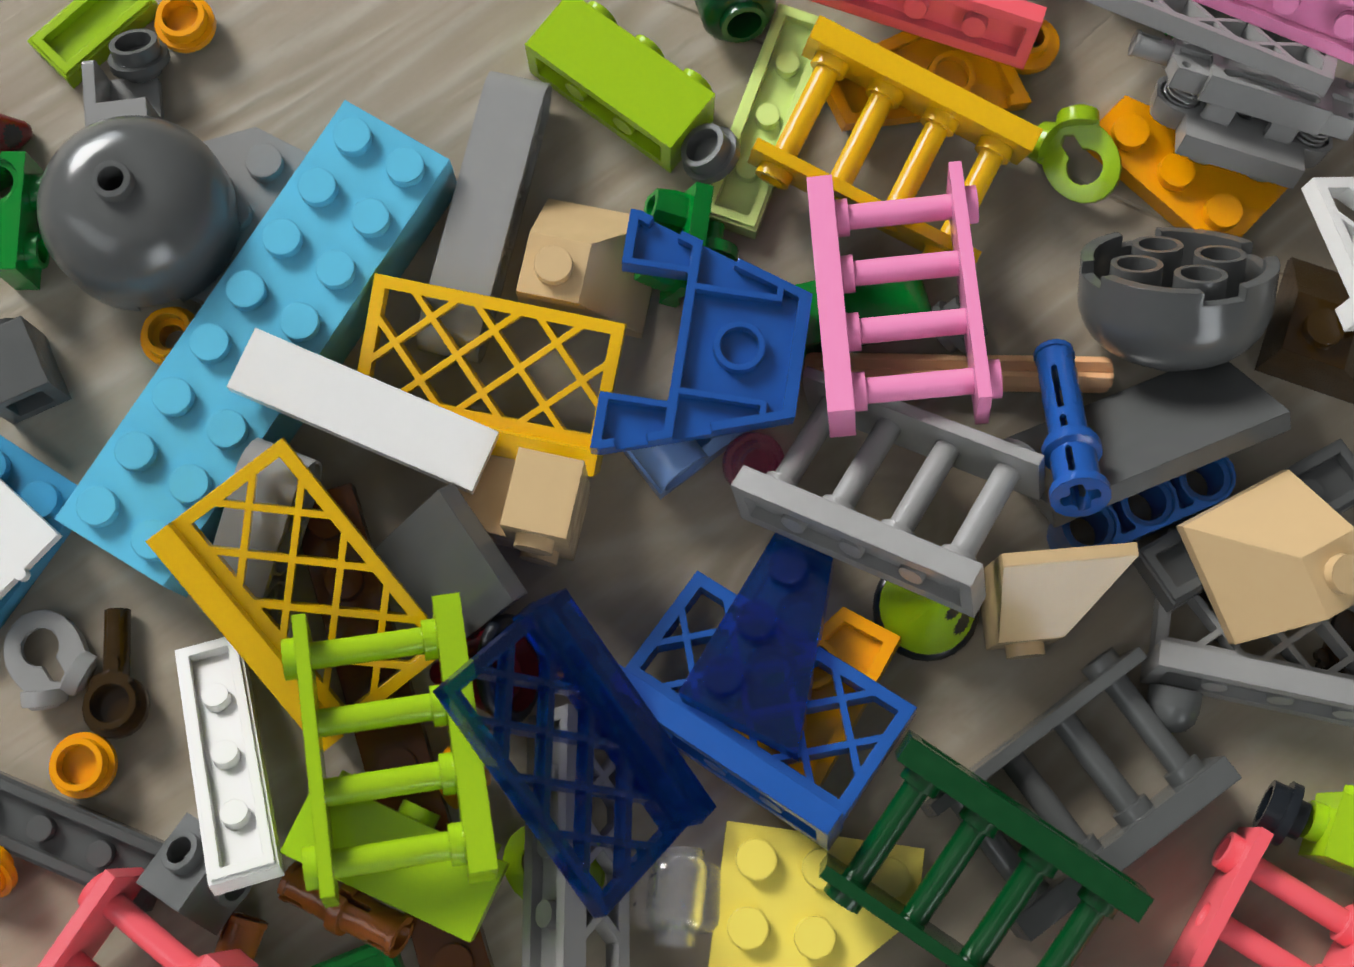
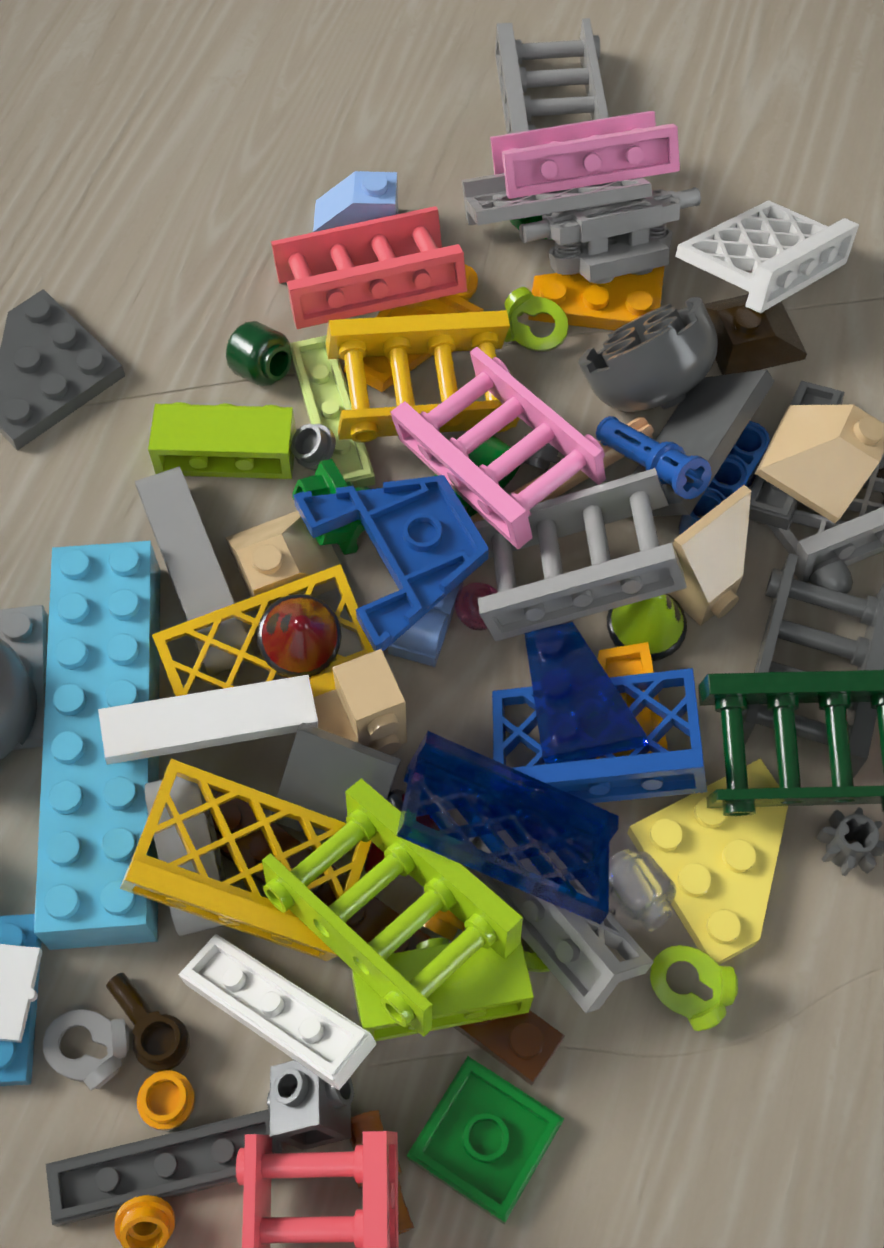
camera: 35 degrees left, 15 degrees down
(157, 329) = (15, 770): light orange plate -> none
(357, 914) = (426, 1056): dark orange pin -> none
(527, 376) = (299, 635): none -> dark red hat

